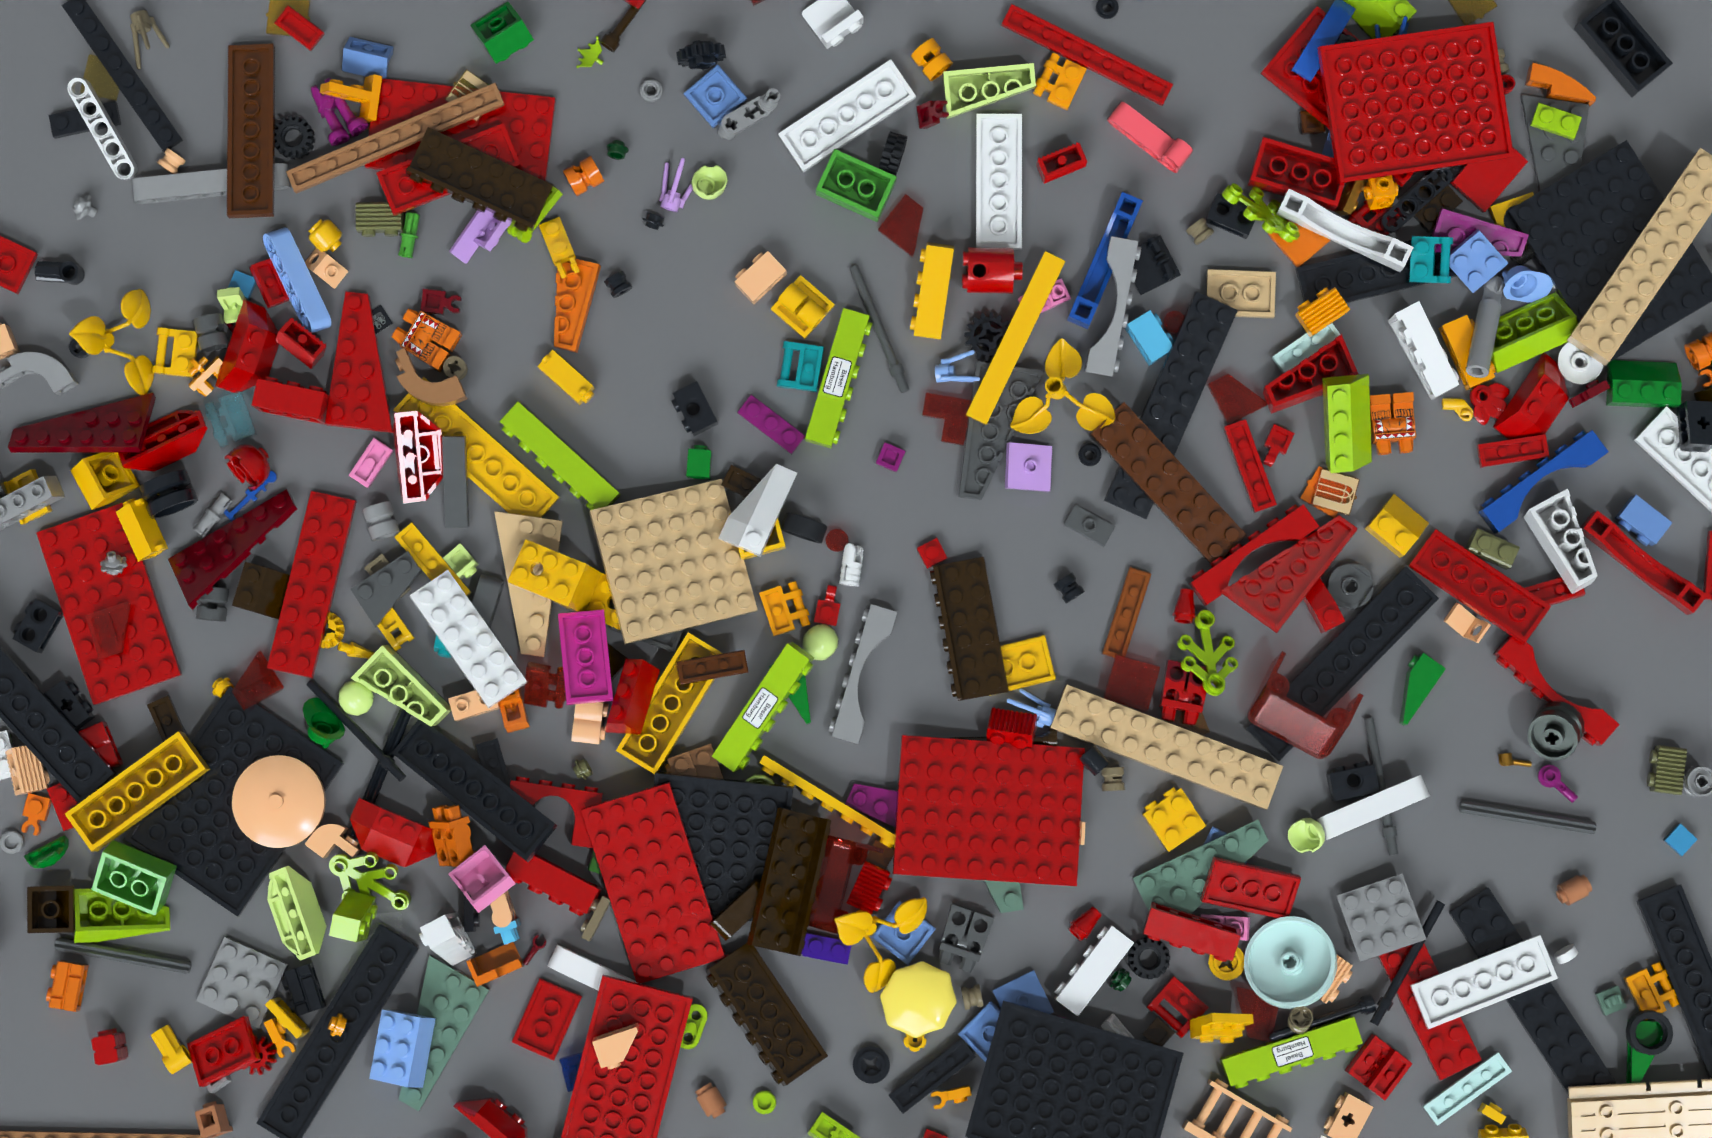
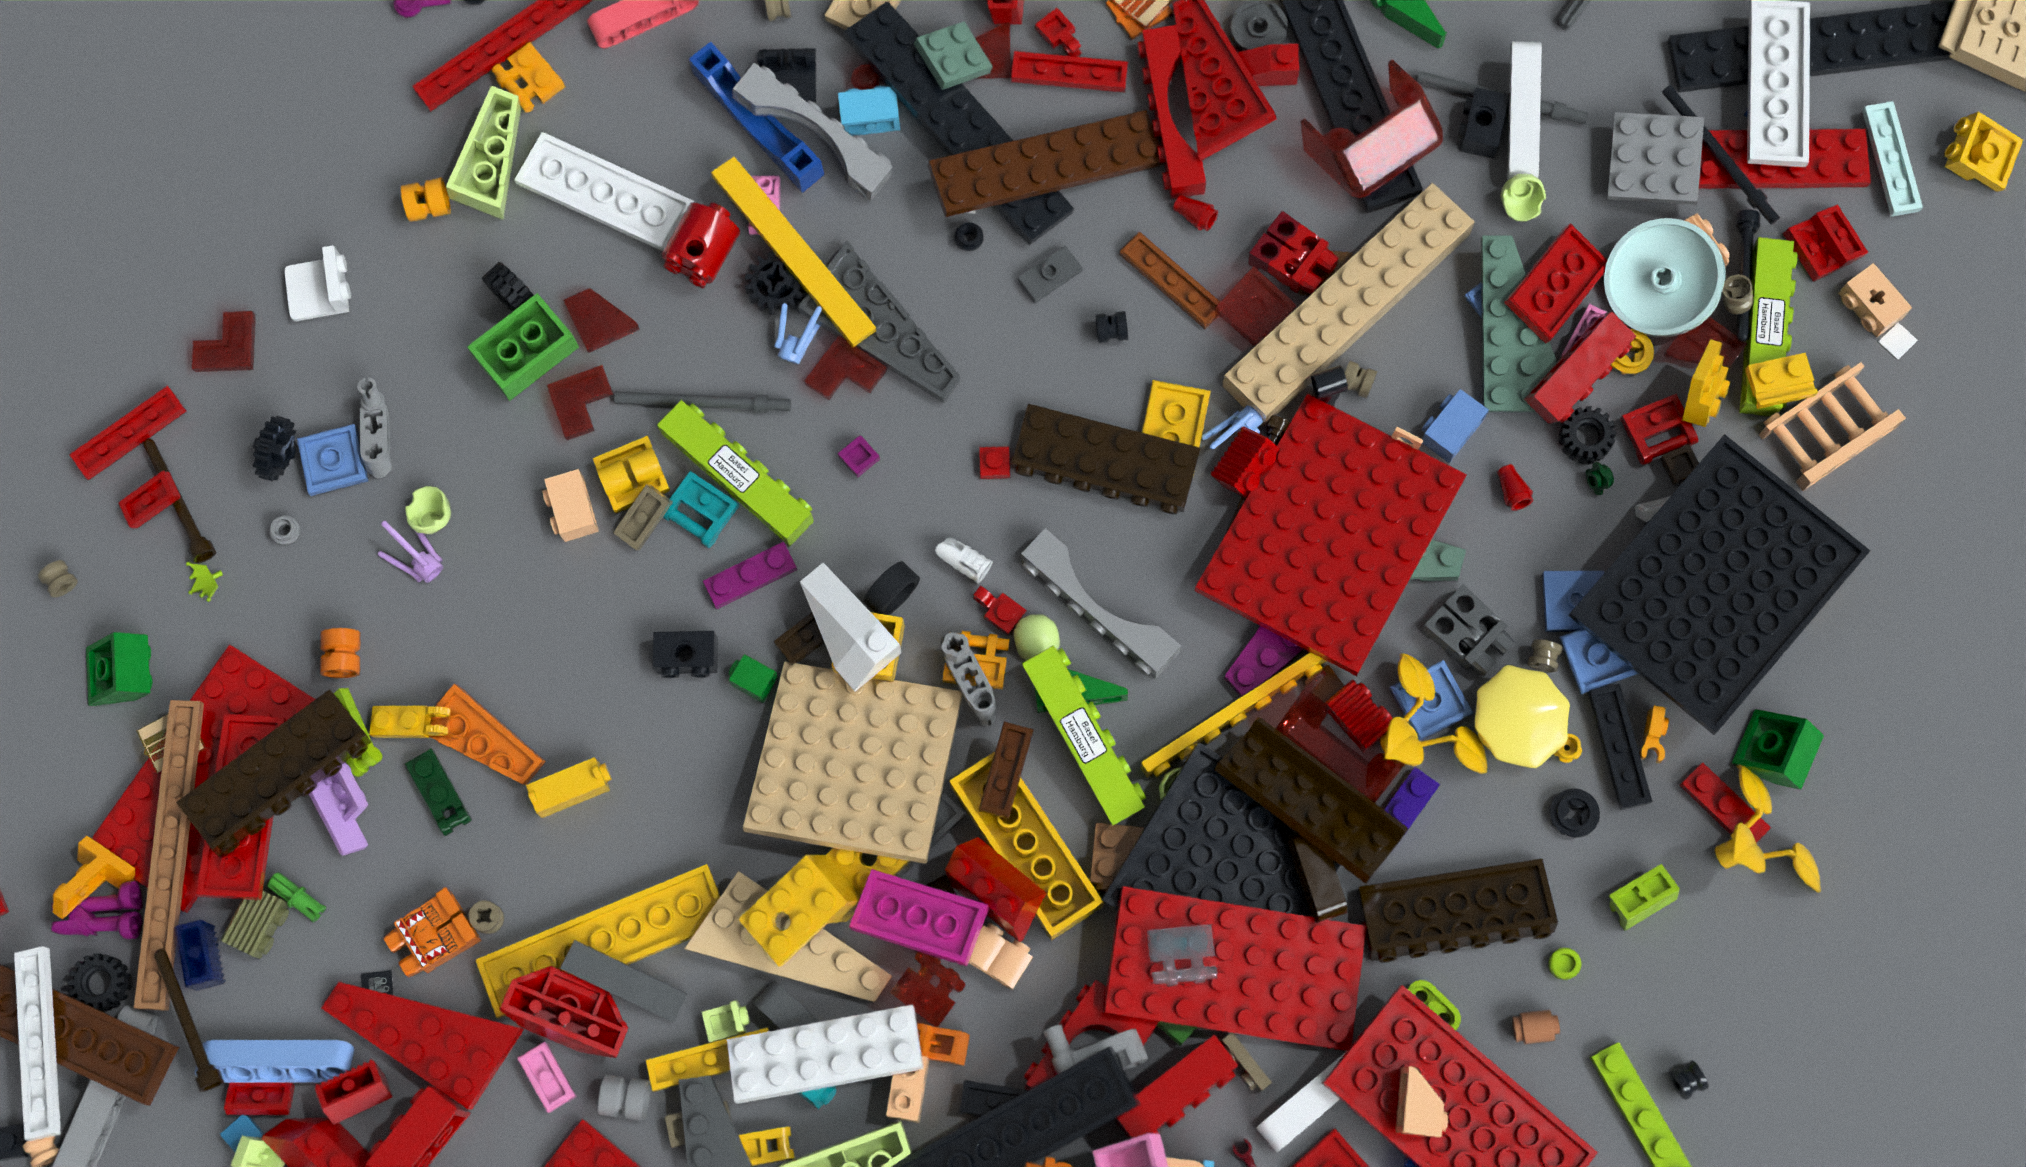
camera: 60 degrees left, 10 degrees down
(233, 123) = (37, 1044): none -> white plate
(265, 244) = (207, 1075): none -> dark brown piece
(325, 235) = (240, 999): yellow head -> none
(326, 268) = (279, 1017): light nougat bracket -> none
(340, 194) = (199, 955): none -> clear blue brick
(366, 57) = (54, 847): medium blue panel -> none
(435, 394) = (501, 956): medium nougat arch -> none
(436, 302) = (394, 902): dark red plate -> none
(523, 291) = (438, 791): none -> dark green plate
(559, 457) = (658, 842): lime brick -> none
(564, 834) = (1126, 1046): none -> light grey beam
(582, 769) = (1053, 993): olive plate -> none
(617, 150) = (332, 601): dark green plate -> none
(618, 284) = (490, 673): black wheel -> none
(648, 839) = (1182, 943): none -> clear light blue plate
(653, 221) = (438, 598): black plate -> none
(774, 602) = (965, 662): none -> light grey beam
(775, 331) = (643, 517): none -> dark tan plate
(836, 540) = (925, 562): clear red plate -> none
(838, 236) = (573, 394): none -> clear red plate
(847, 115) = (437, 323): white plate -> none
(930, 113) = (485, 230): dark red plate -> none
(933, 290) = (690, 316): yellow wedge -> none
(1028, 467) = (949, 308): lavender plate -> none
(1061, 162) = (620, 112): red brick -> none
(1061, 362) = (851, 216): yellow plant -> none
(1093, 970) = (1575, 501): white brick -> none
(1110, 861) = (1454, 425): none -> medium blue brick
(1173, 818) = (1435, 335): yellow plate -> none
(1207, 655) = (1299, 212): lime plant -> none
(1217, 378) = (953, 55): none -> sand green plate
(1249, 1077) = (1781, 380): none -> yellow plate
(1493, 1112) = (1931, 143): yellow plate -> none

